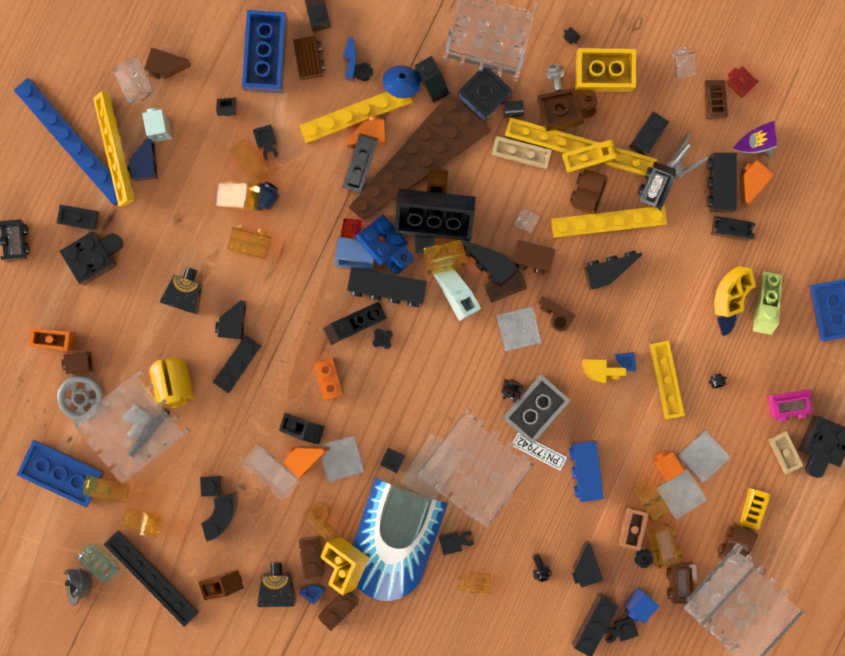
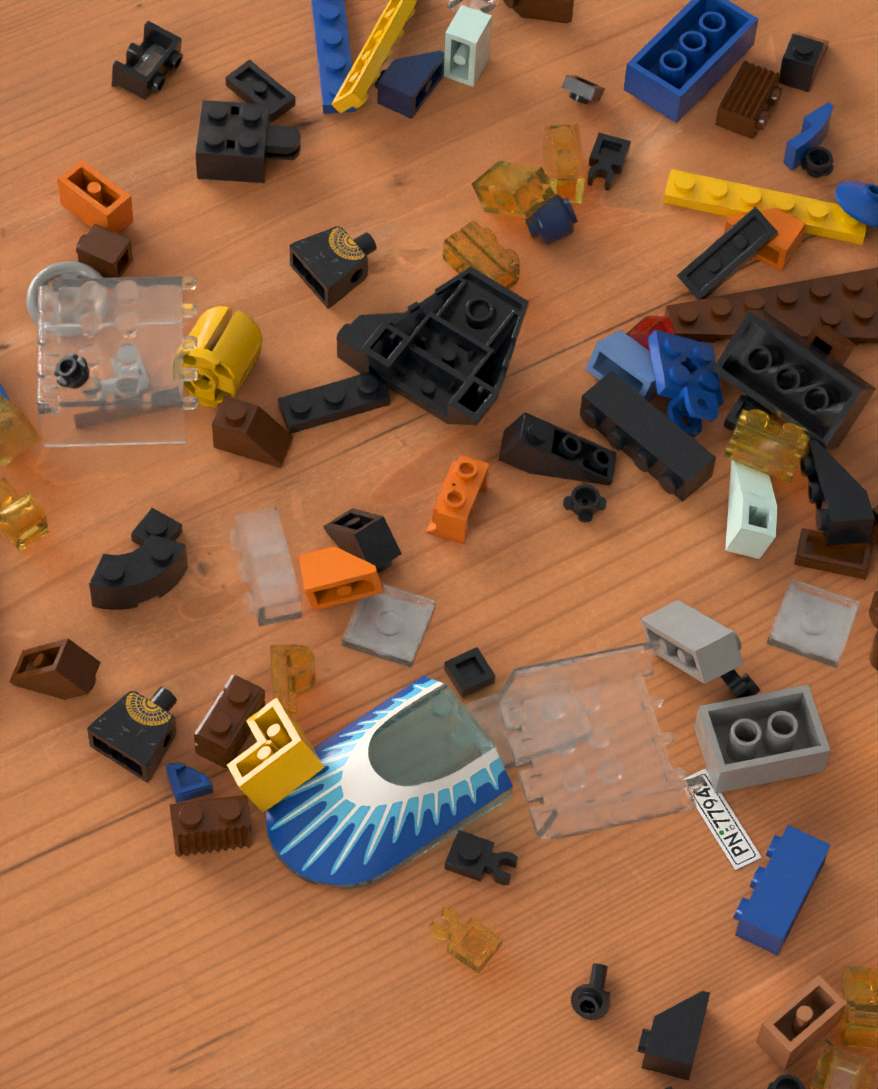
camera: 35 degrees right, 30 degrees down
(128, 458) = (76, 376): none -> black plate
(215, 409) = (250, 432): none -> reddish brown slope
(273, 306) = (451, 347): none -> black wedge
(479, 386) = (693, 641): none -> light grey brick

